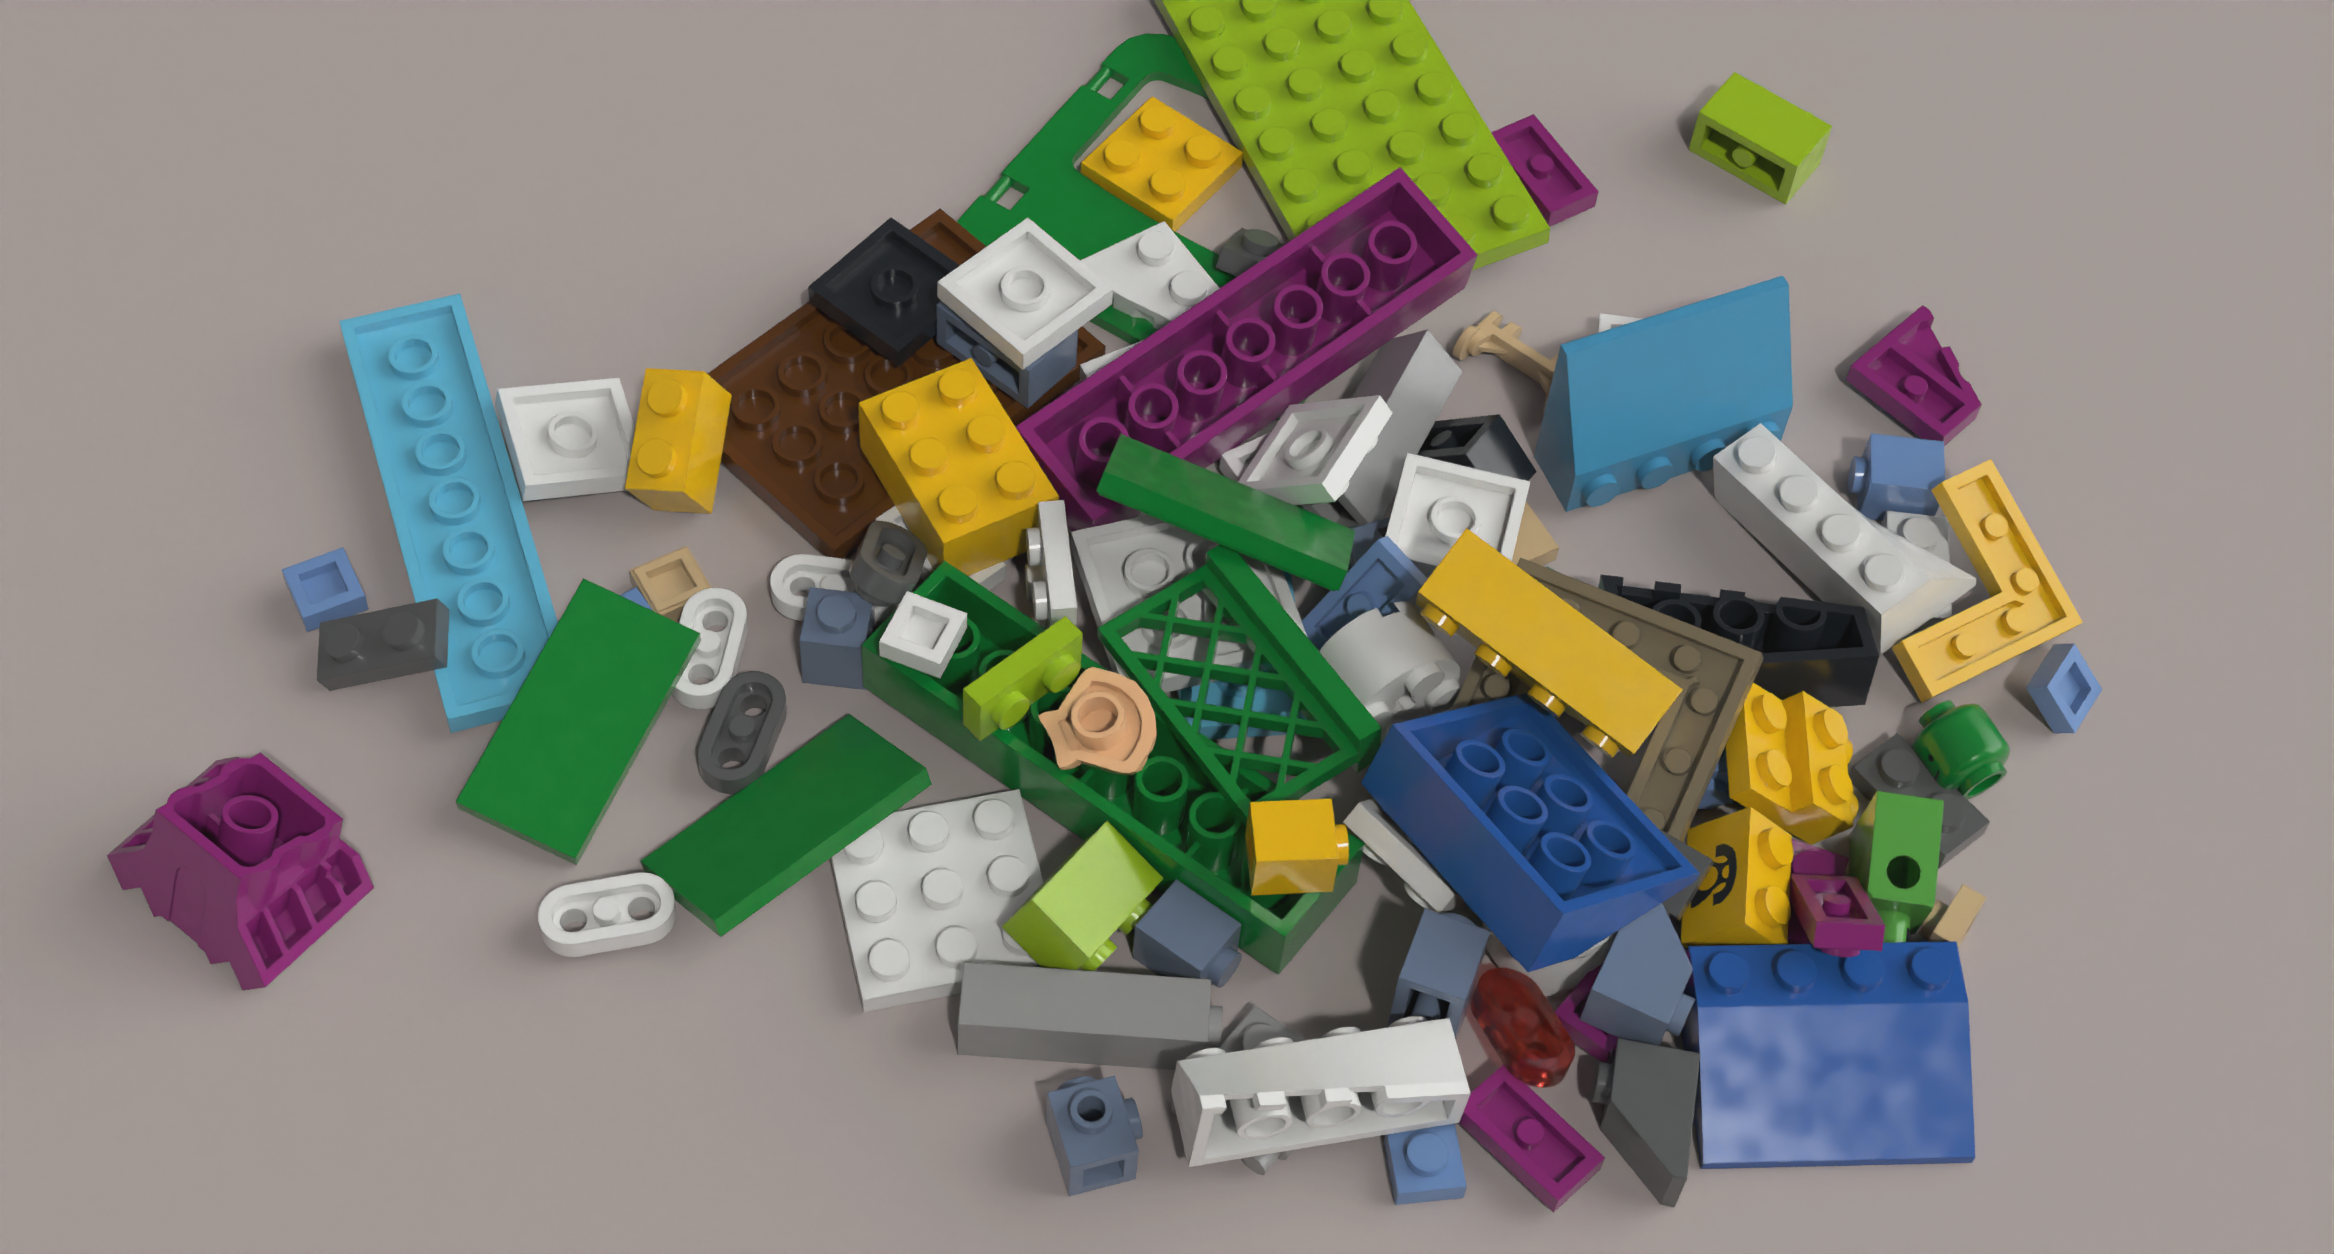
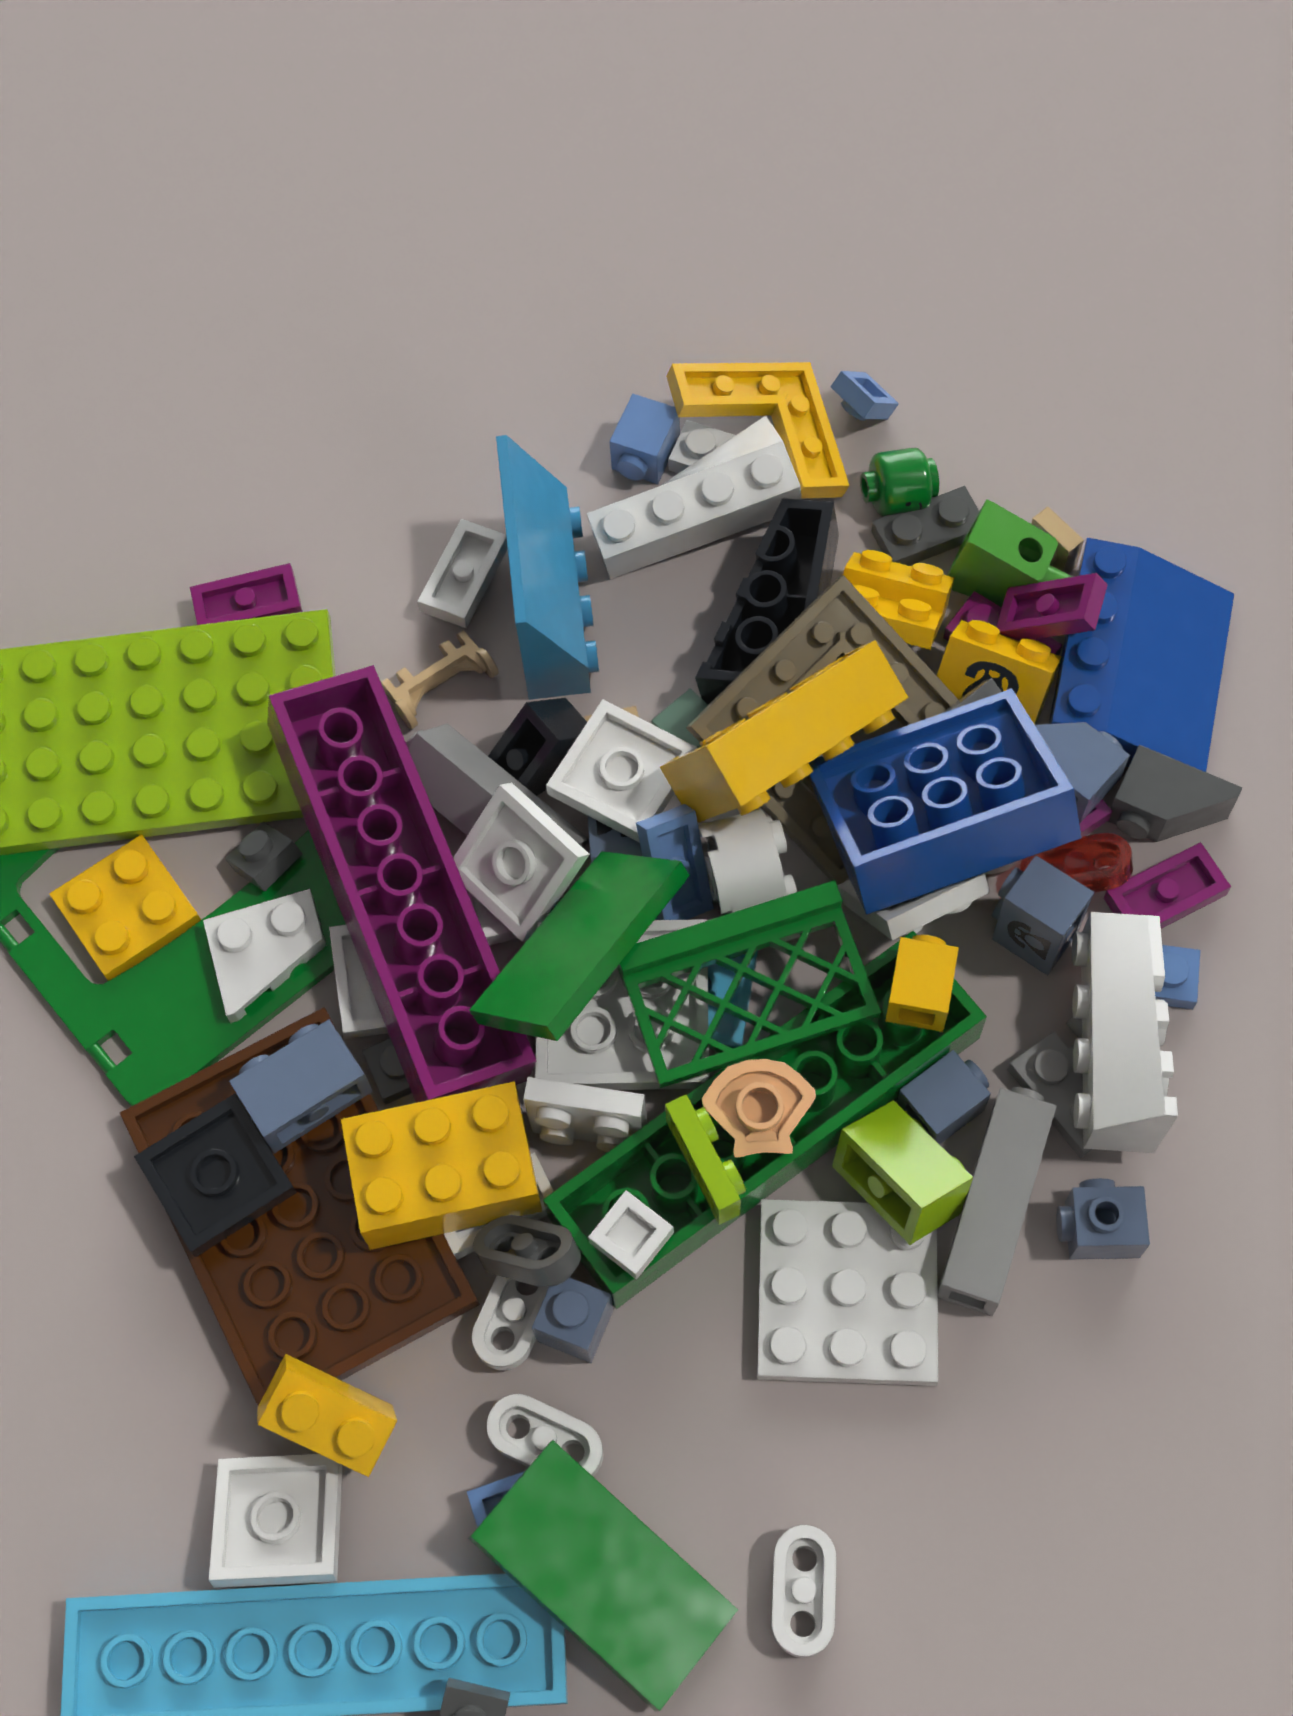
camera: 65 degrees left, 10 degrees up
(669, 582) = (461, 1459): tan tile -> none
(739, 736) = (644, 1427): dark grey plate -> none
(786, 823) = (754, 1409): green tile -> none
(1025, 293) = (288, 1053): white plate -> none
(1760, 137) = (273, 425): lime brick -> none
(1917, 380) = (552, 395): magenta wing -> none

